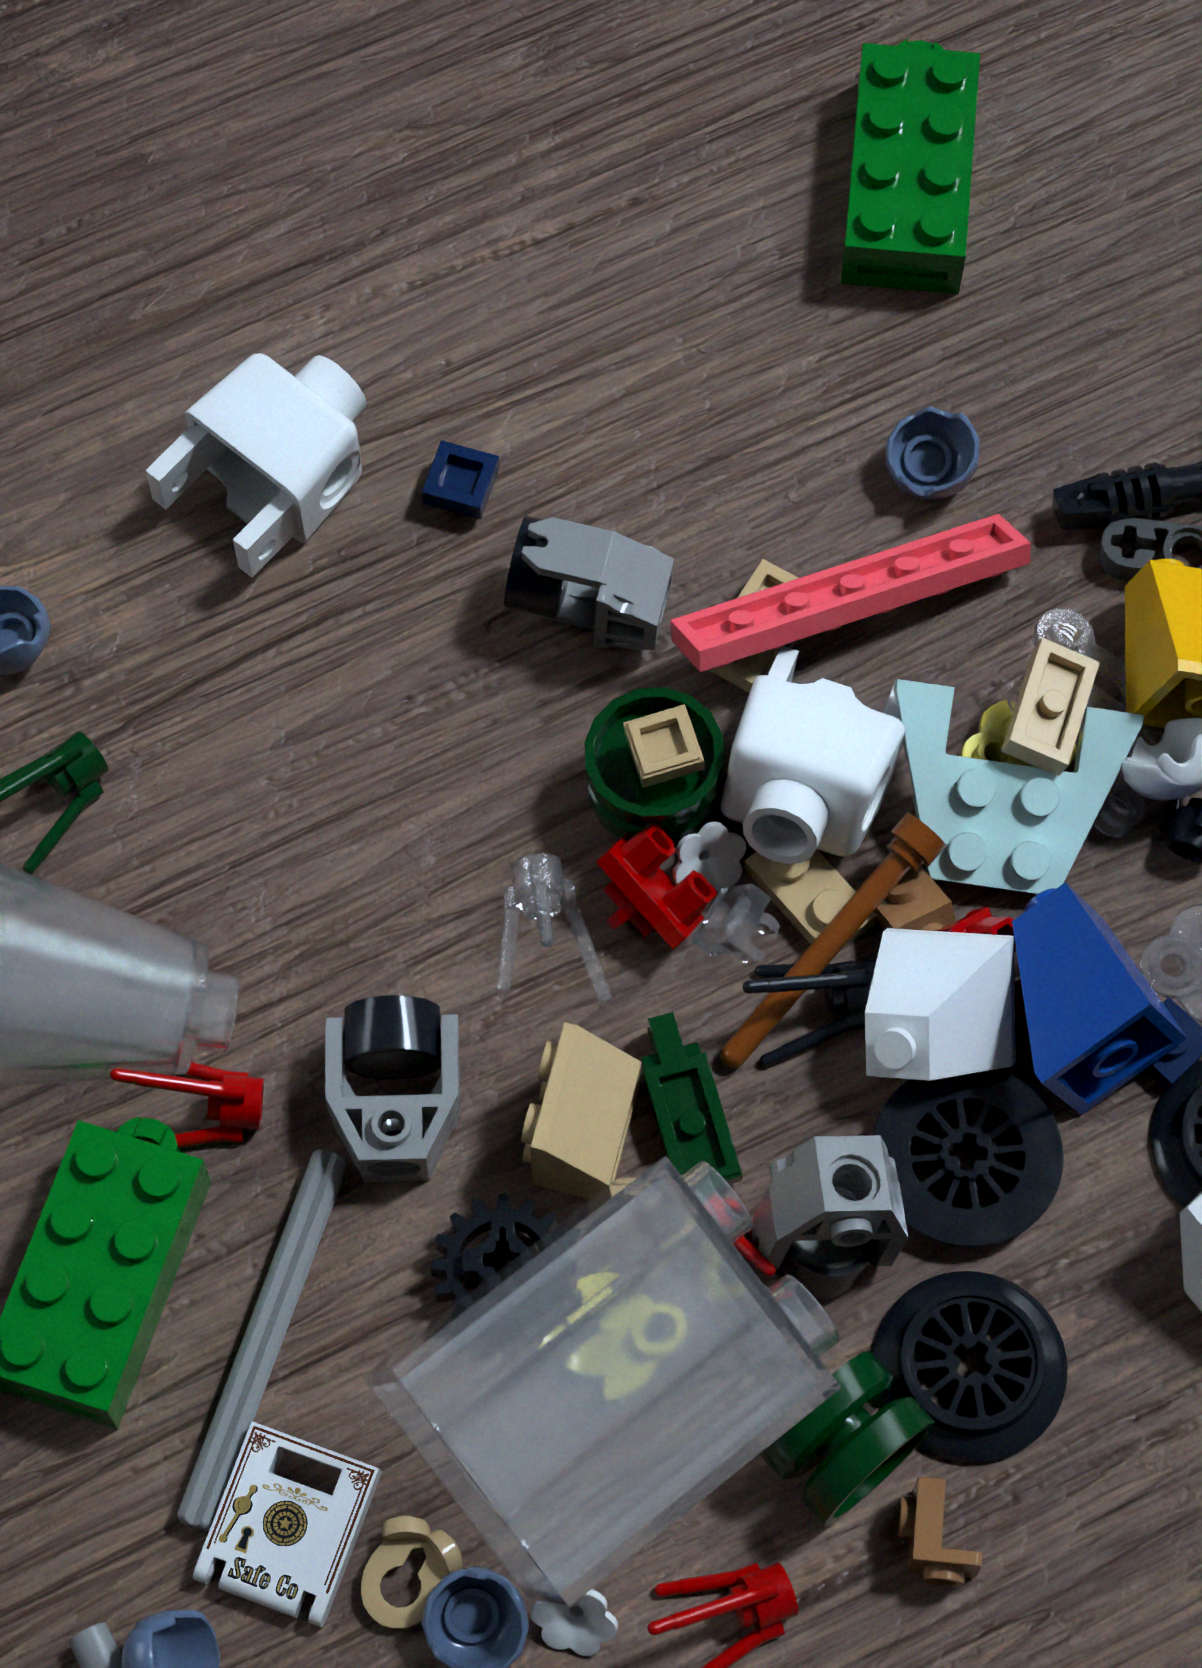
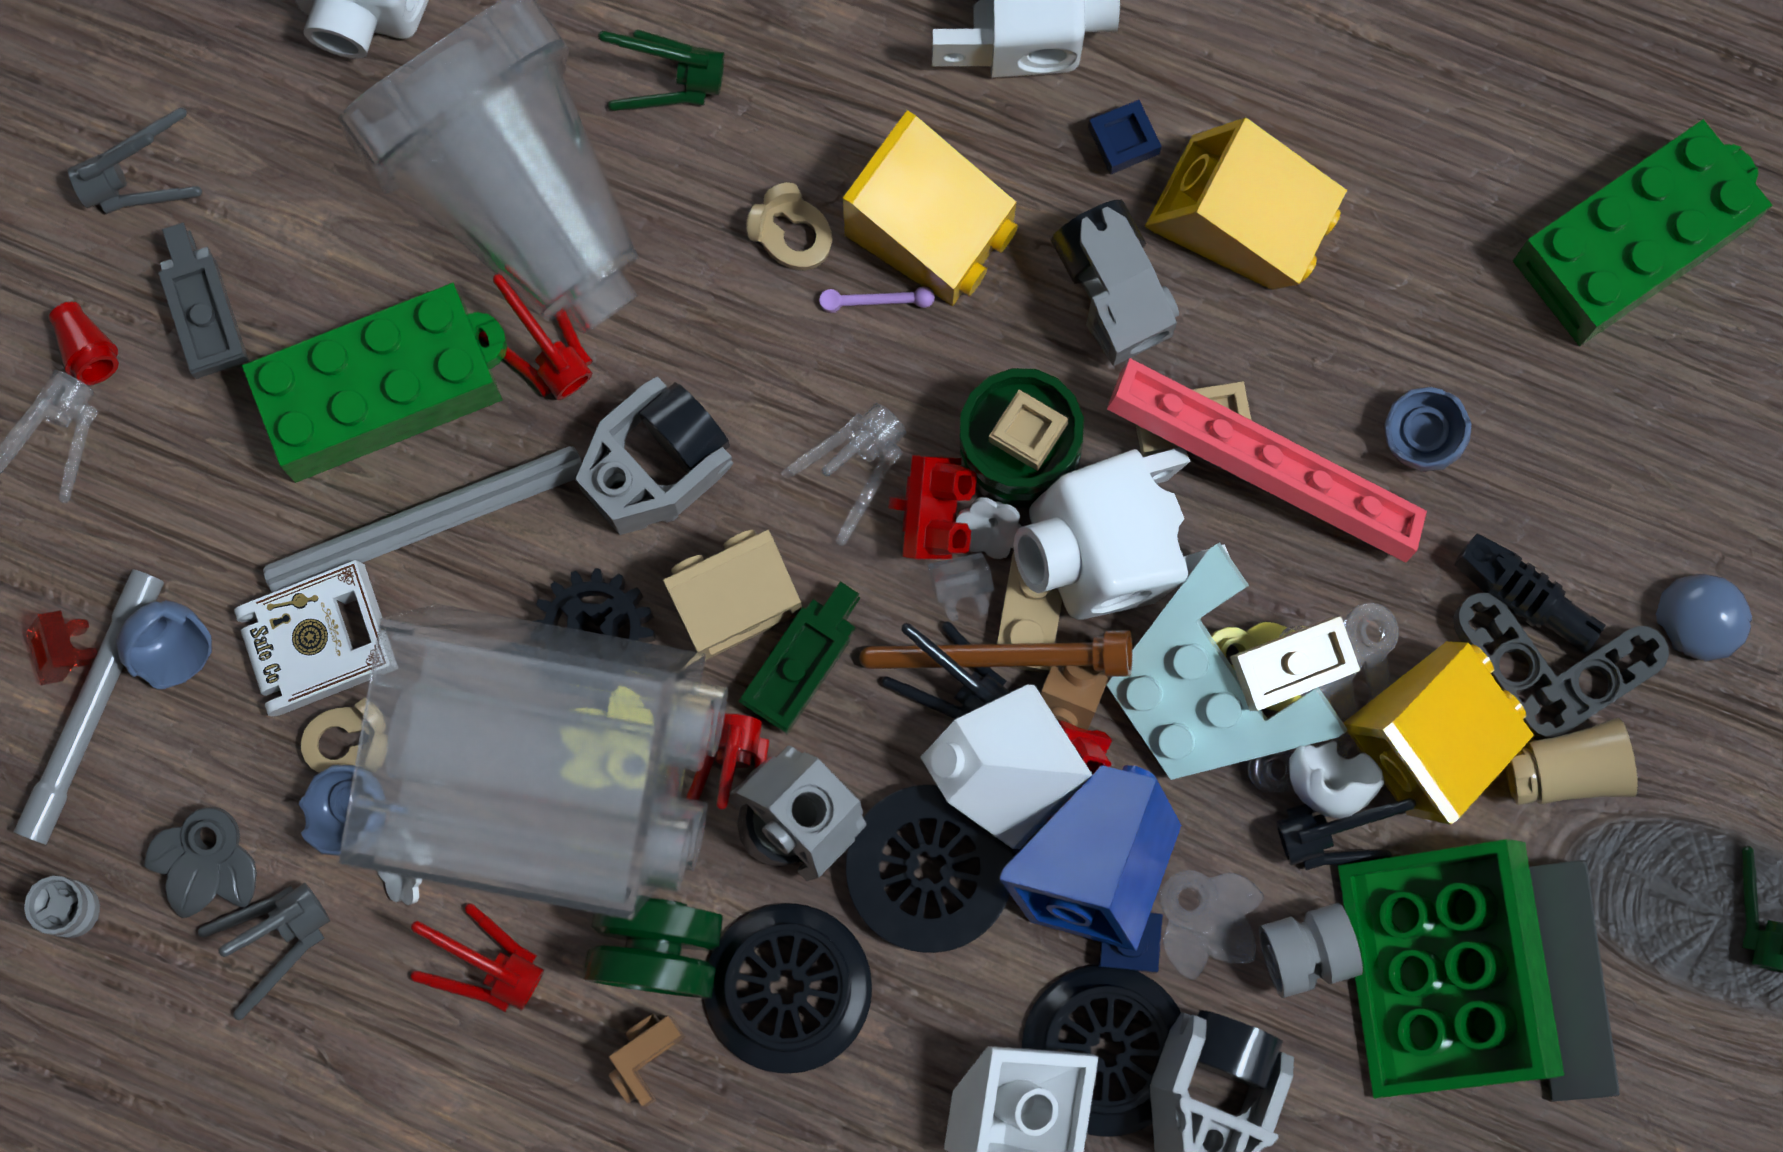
camera: 50 degrees right, 10 degrees up
(259, 793) = (787, 201): none -> tan piece
(381, 829) = (832, 301): none -> lavender hinge
(387, 680) = (928, 211): none -> yellow slope
(611, 432) = (1248, 204): none -> yellow slope

